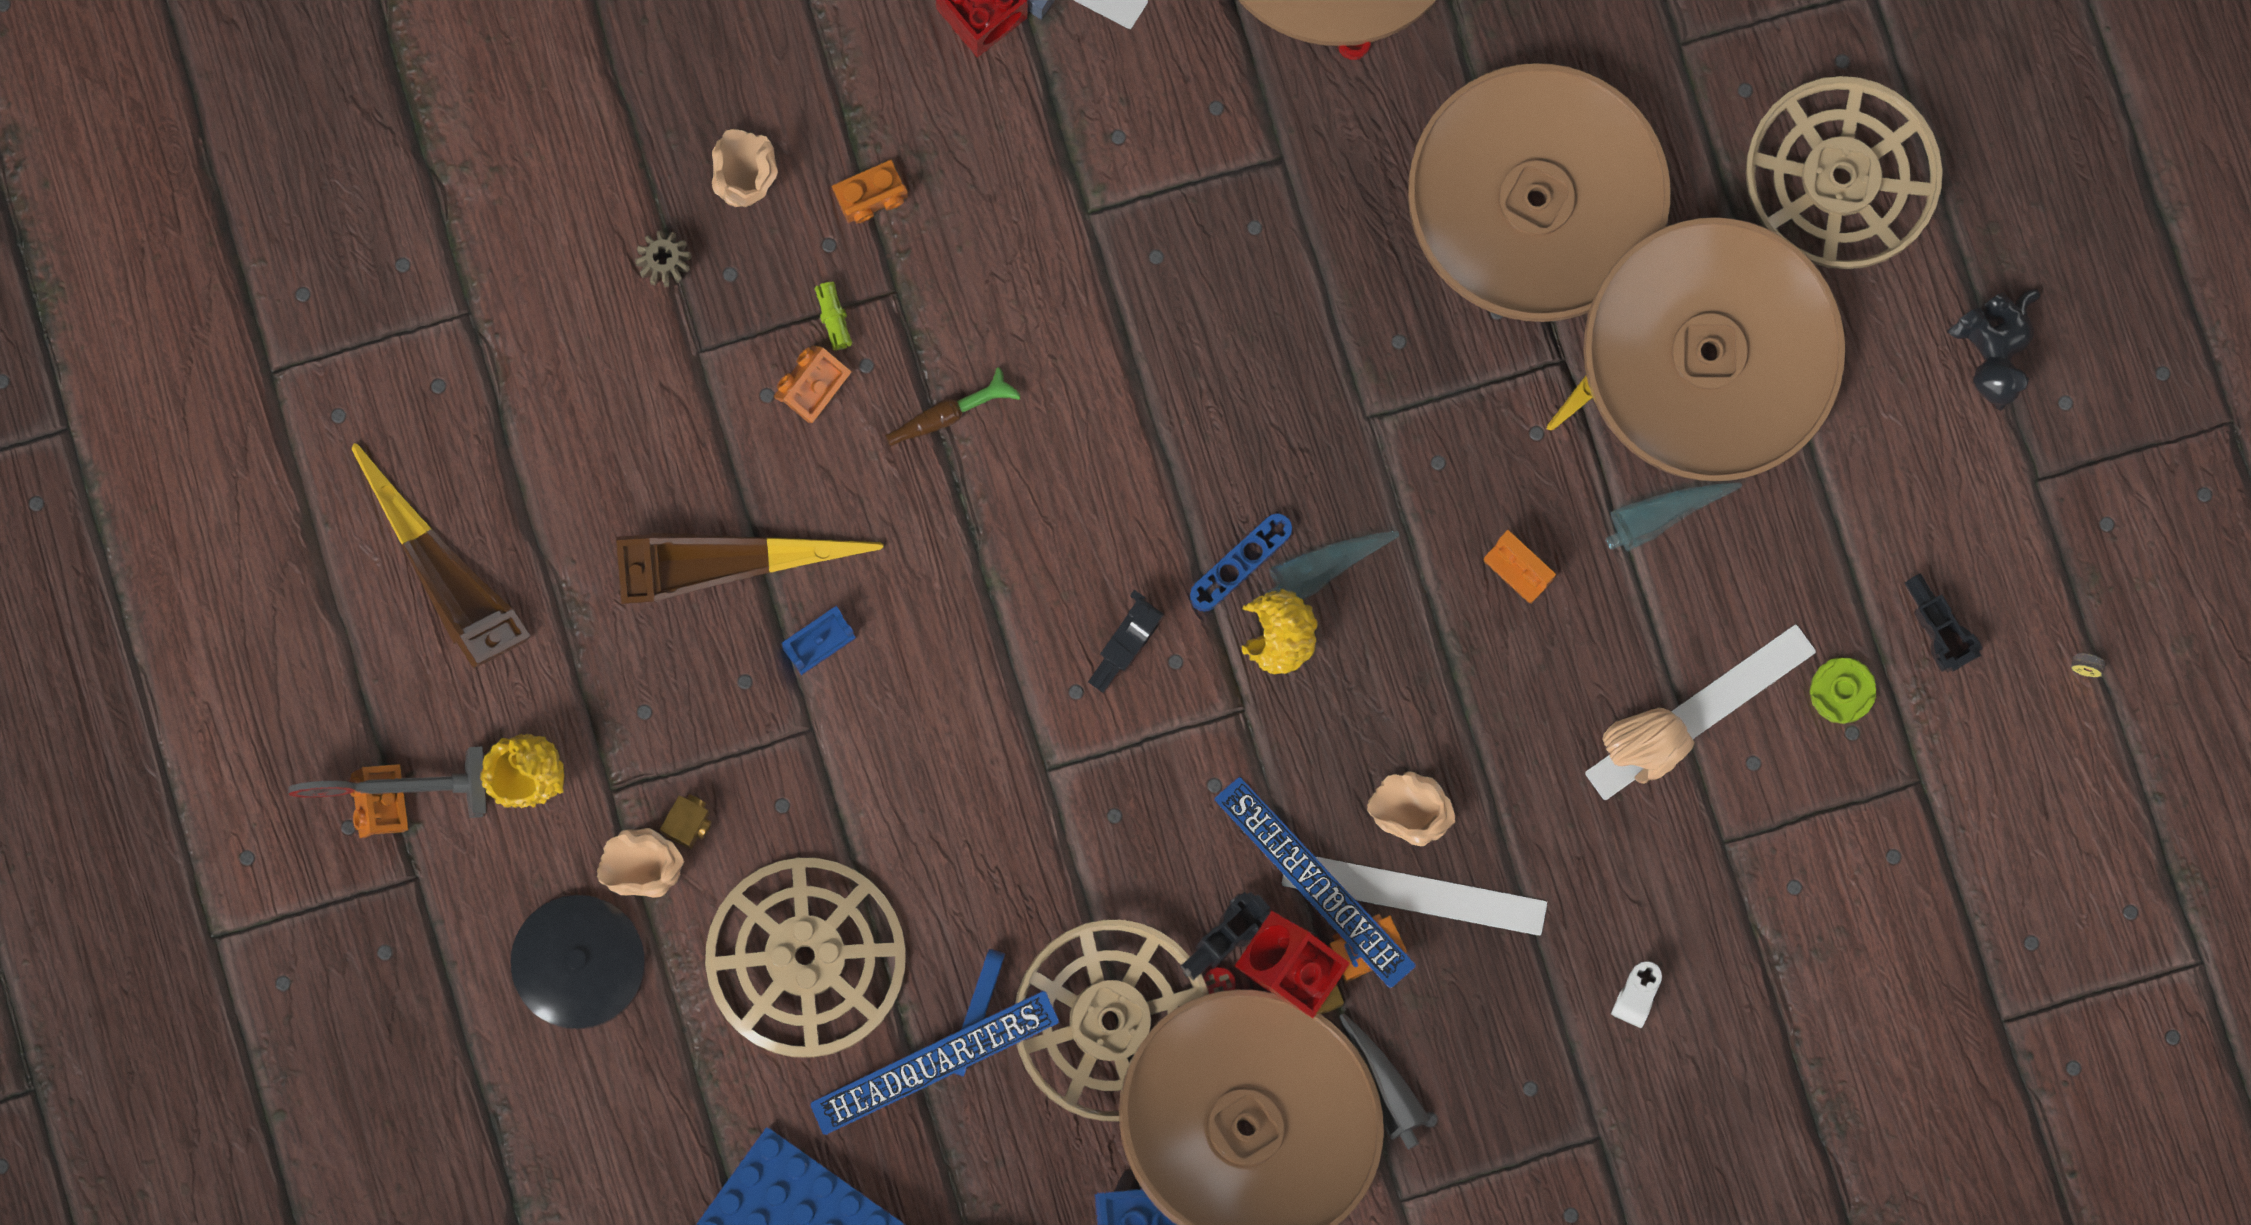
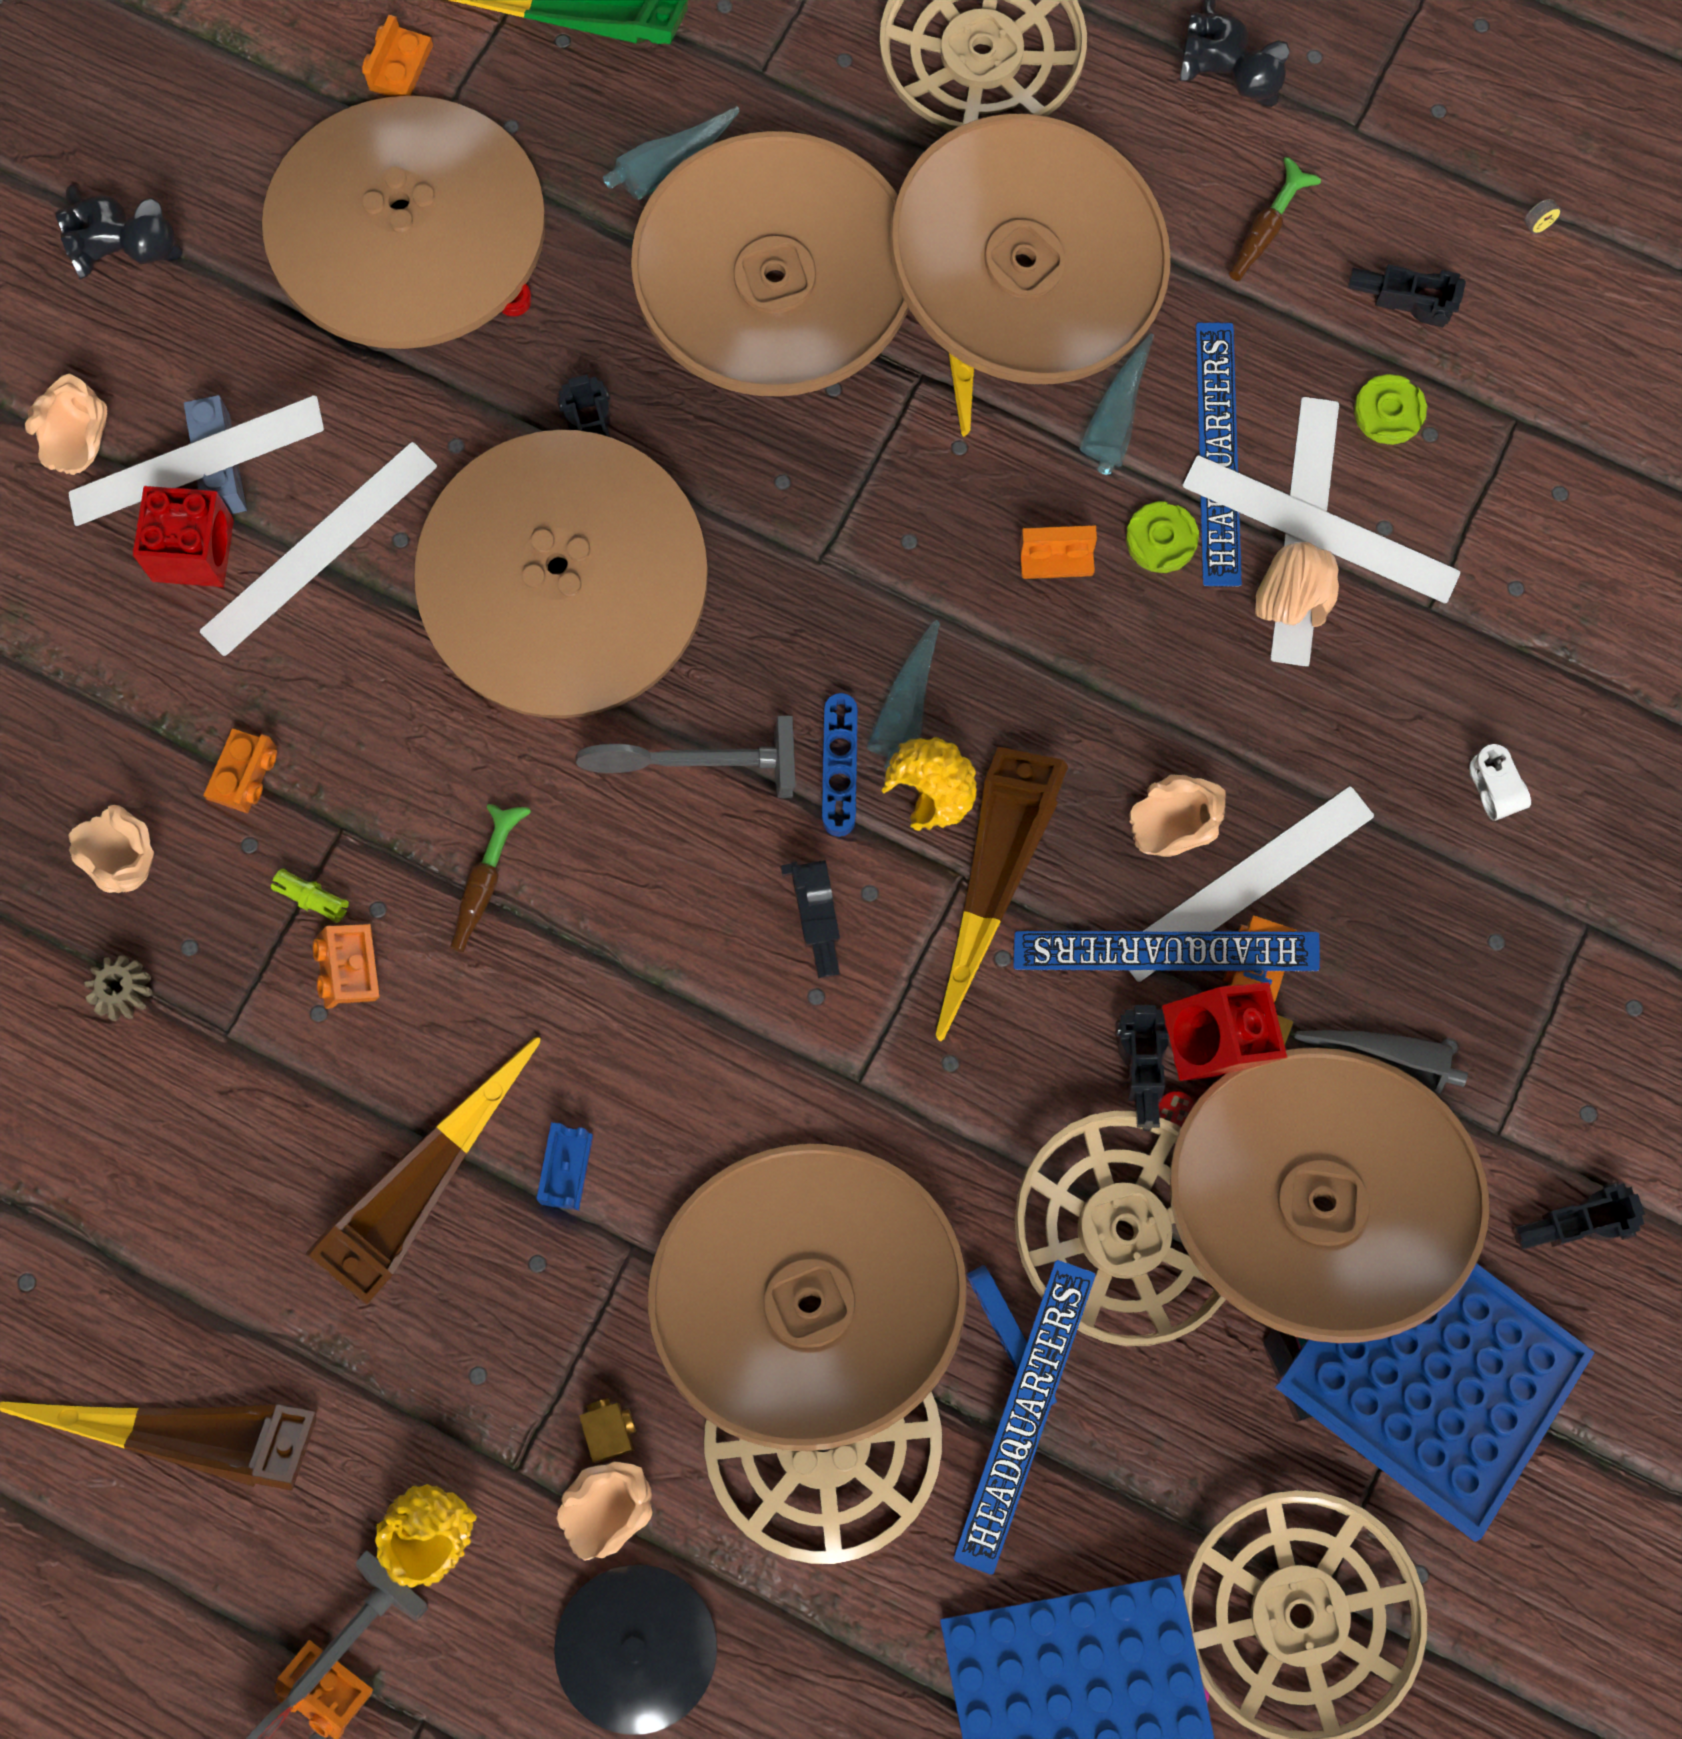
camera: 40 degrees left, 5 degrees down
(892, 807) = (794, 1229): none -> medium nougat dish
(1061, 91) = (318, 549): none -> white sticker
(1203, 323) = (572, 637): none -> medium nougat dish
(1205, 518) = (628, 758): none -> dark grey piece
(1305, 194) = (584, 393): none -> black piece
(1309, 706) = (1013, 817): none -> reddish brown plate
(1545, 44) = (651, 162): none -> clear light blue piece
(1601, 623) = (1162, 537): none -> lime tile
(1700, 605) = (1218, 444): none -> sticker
(1710, 722) = (1322, 529): none -> white sticker
(1903, 486) = (1270, 220): none -> reddish brown piece

